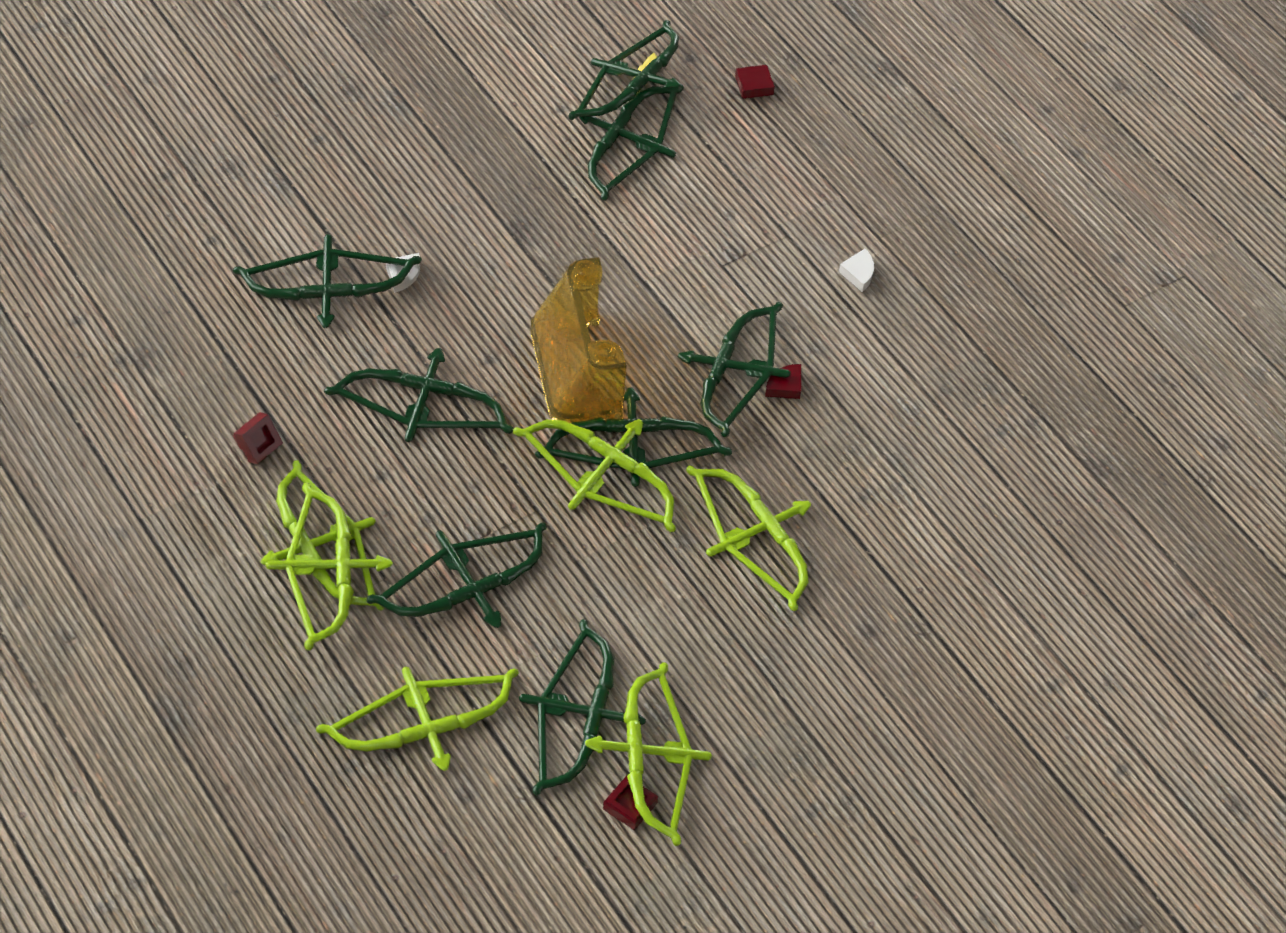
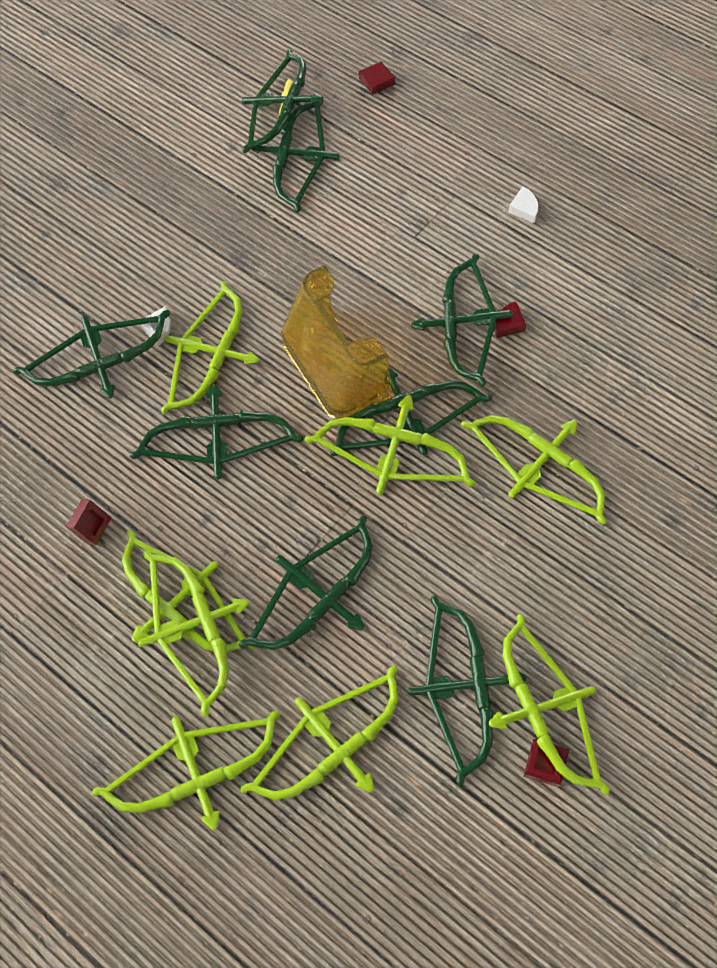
camera: 10 degrees left, 10 degrees up
(276, 676) = (185, 750): none -> lime piece
(433, 301) = (194, 344): none -> lime piece

